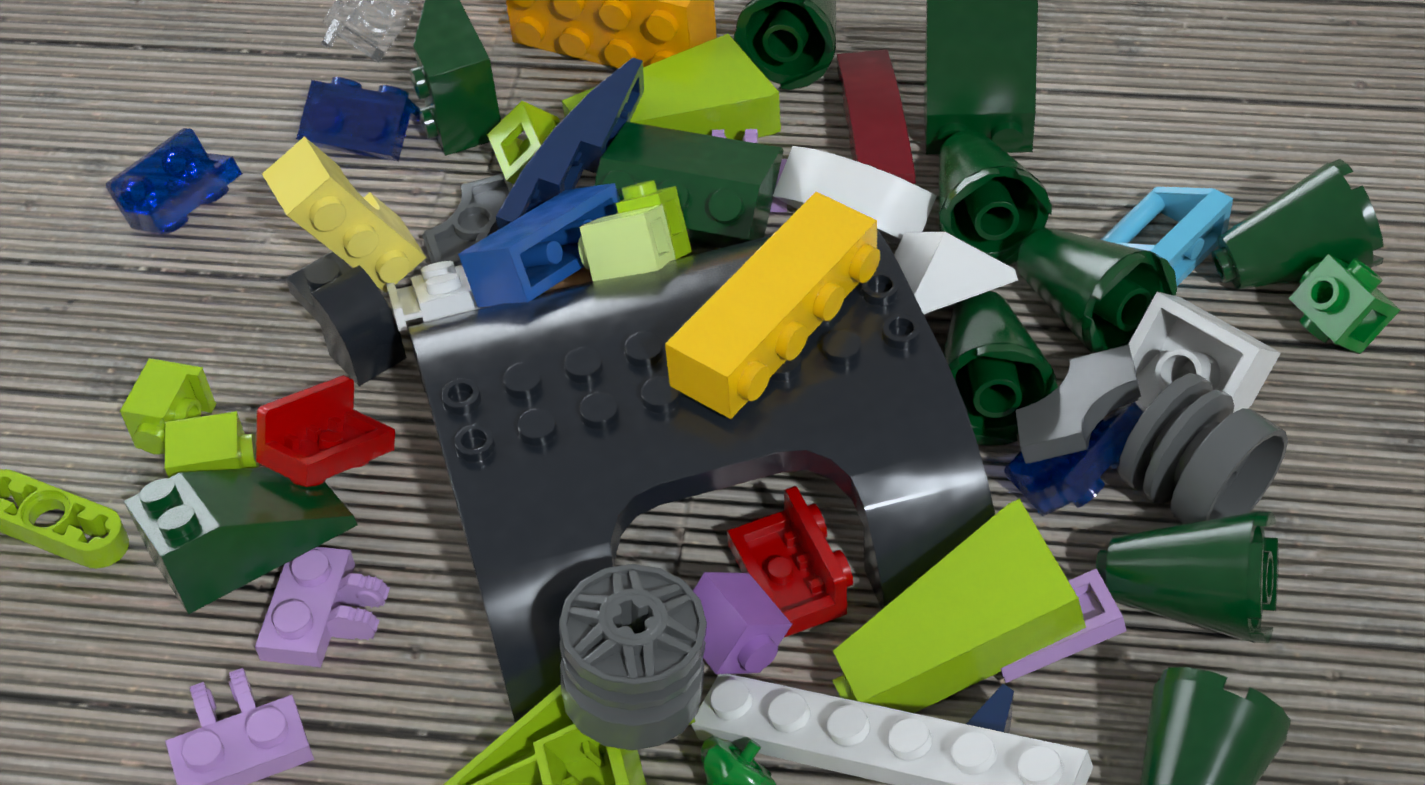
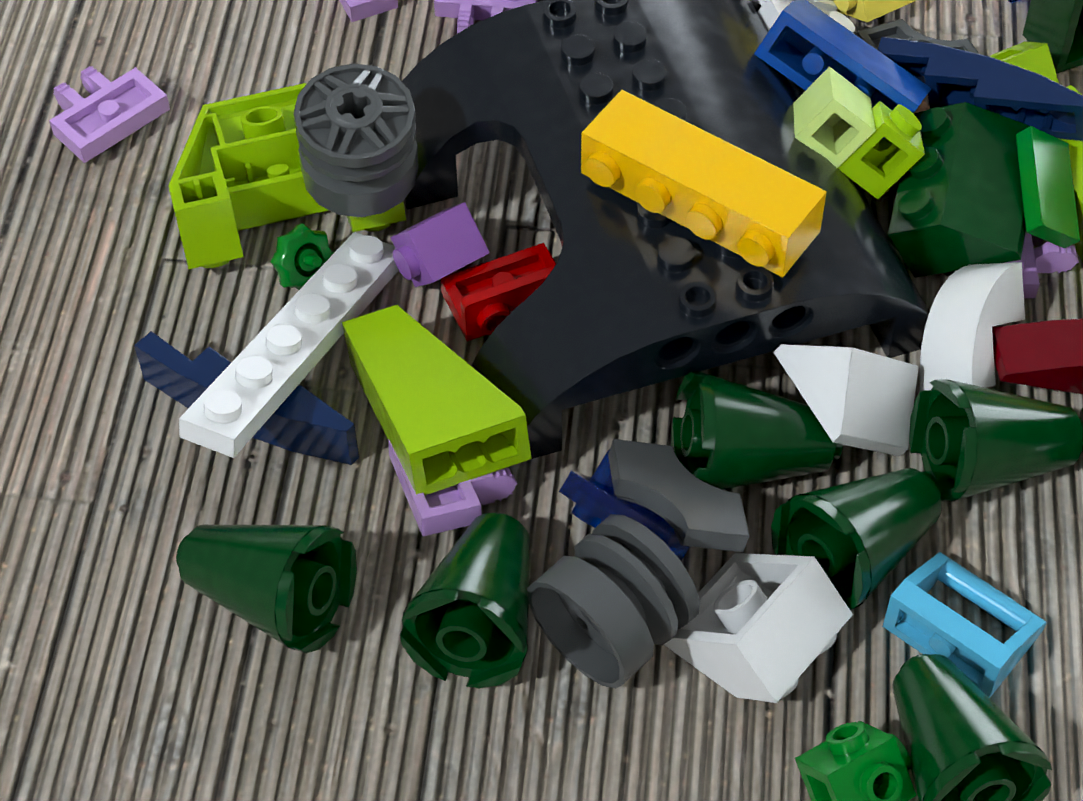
camera: 85 degrees right, 5 degrees up
(703, 121) = (1047, 187): none -> green tile

